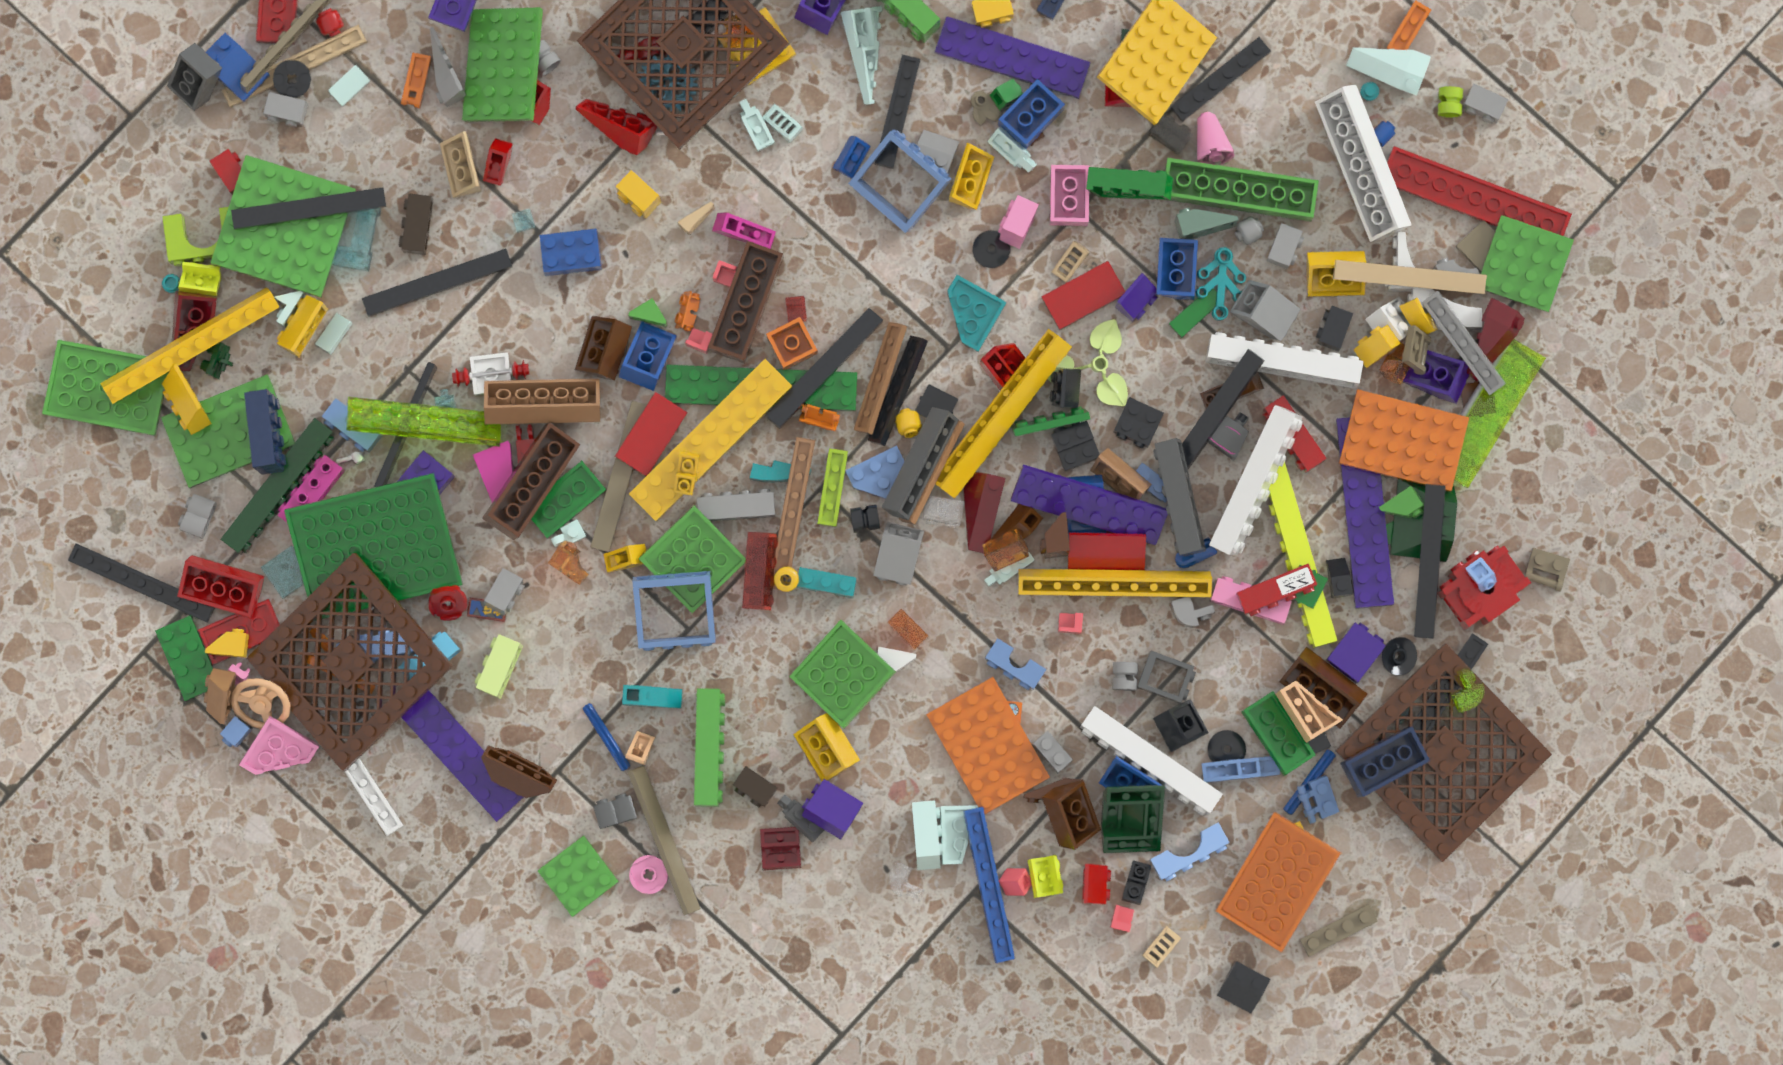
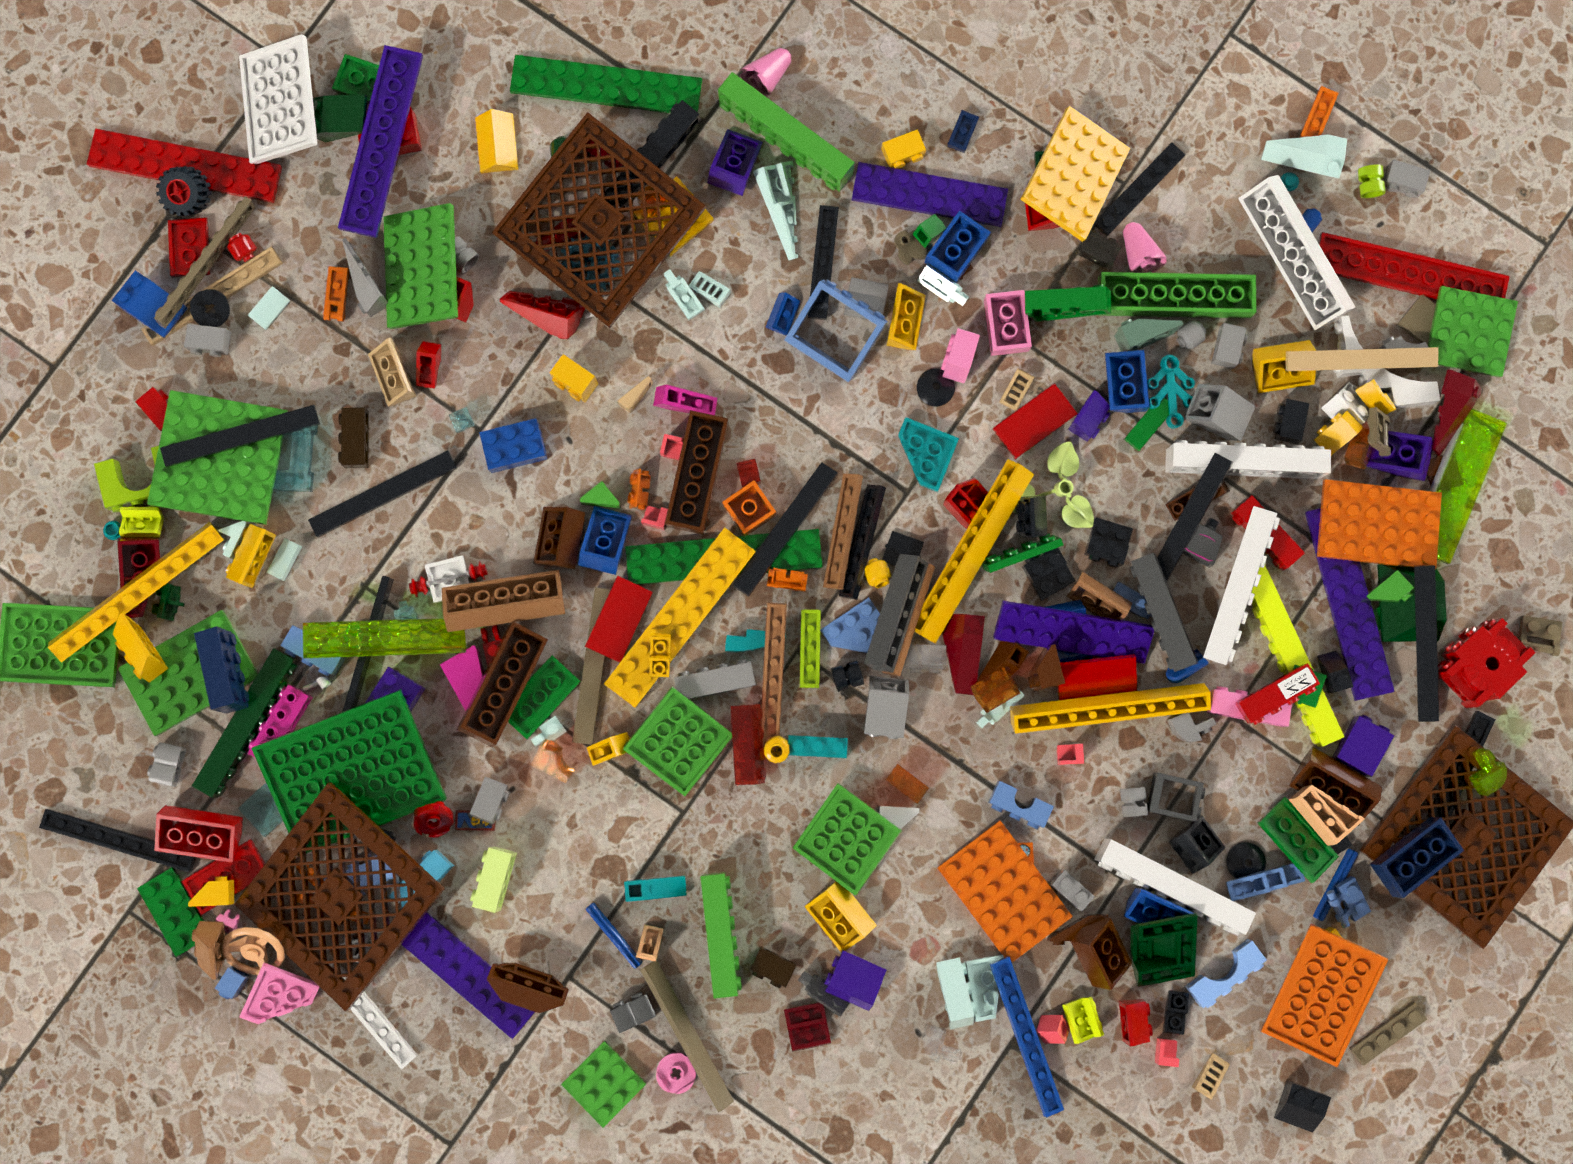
camera: 10 degrees left, 0 degrees up
(194, 76) = (108, 318): dark grey brick -> none
(674, 580) = (662, 766): medium blue window -> none
(1406, 656) = (1408, 743): black dish -> none
(1463, 343) = (1427, 418): light grey plate -> none
(1481, 574) = (1486, 650): light blue bracket -> none

